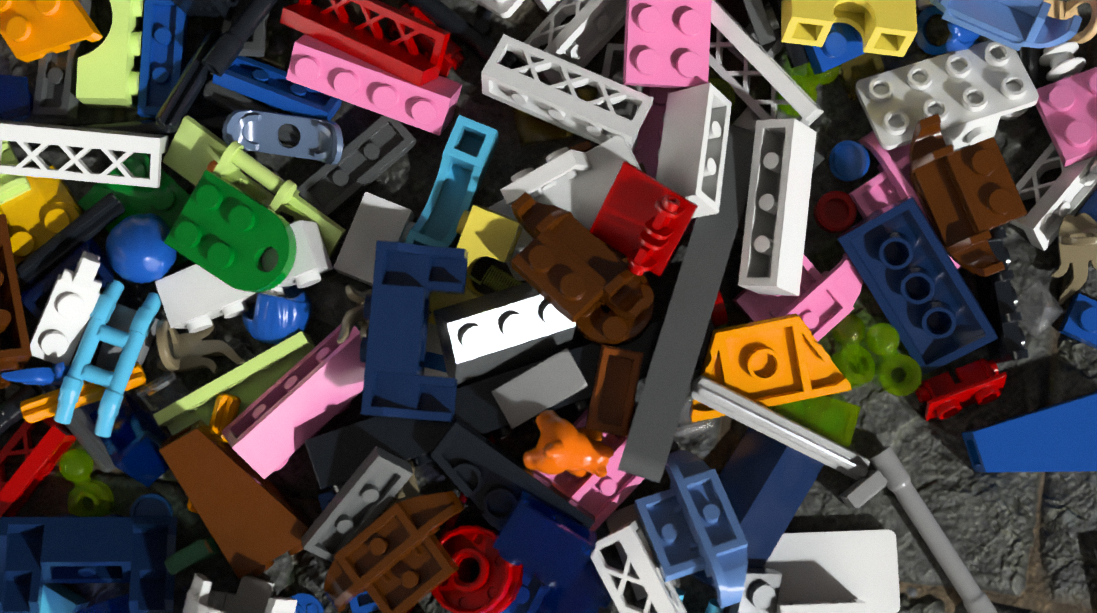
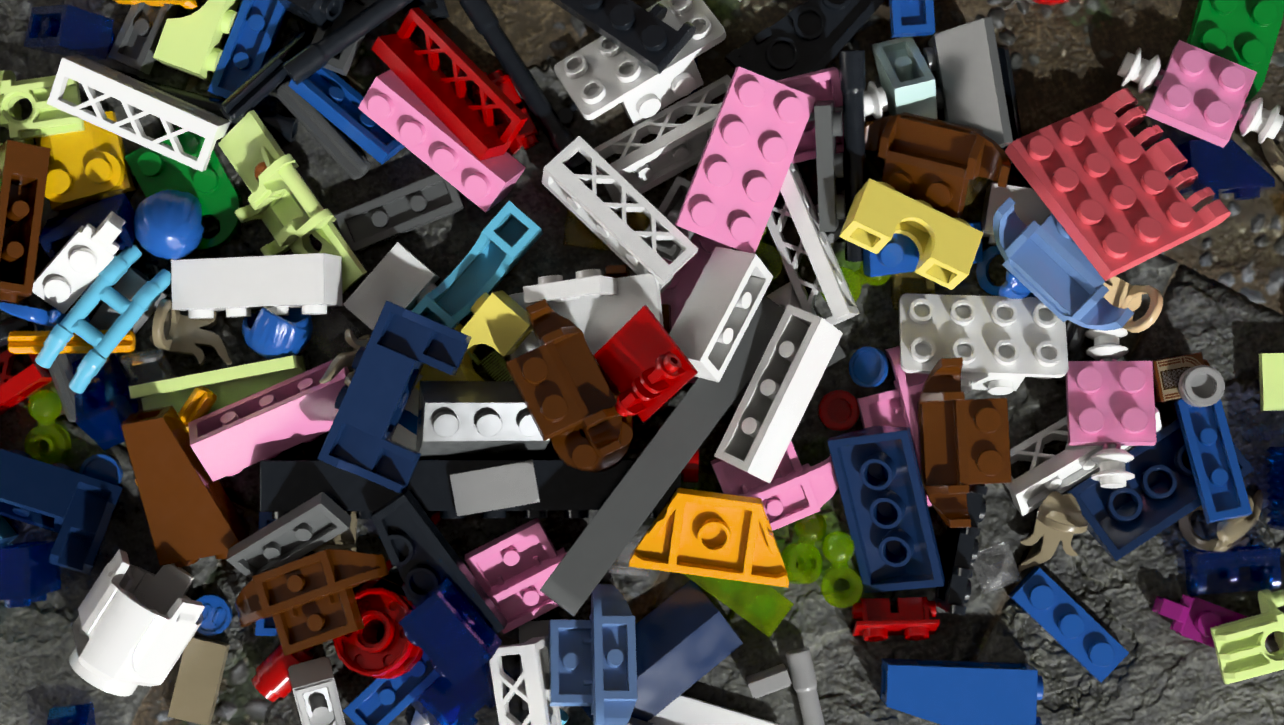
camera: 20 degrees right, 5 degrees up
(70, 238) = (104, 192): black axle -> none
(192, 556) = (121, 531): clear green tile -> none
(230, 234) = (253, 243): green plate -> none
(259, 133) = (317, 149): sand blue piece -> none
(567, 448) = (502, 552): orange animal -> none
(614, 390) = (565, 513): dark orange tile -> none
(779, 427) = (707, 599): light grey axle -> none

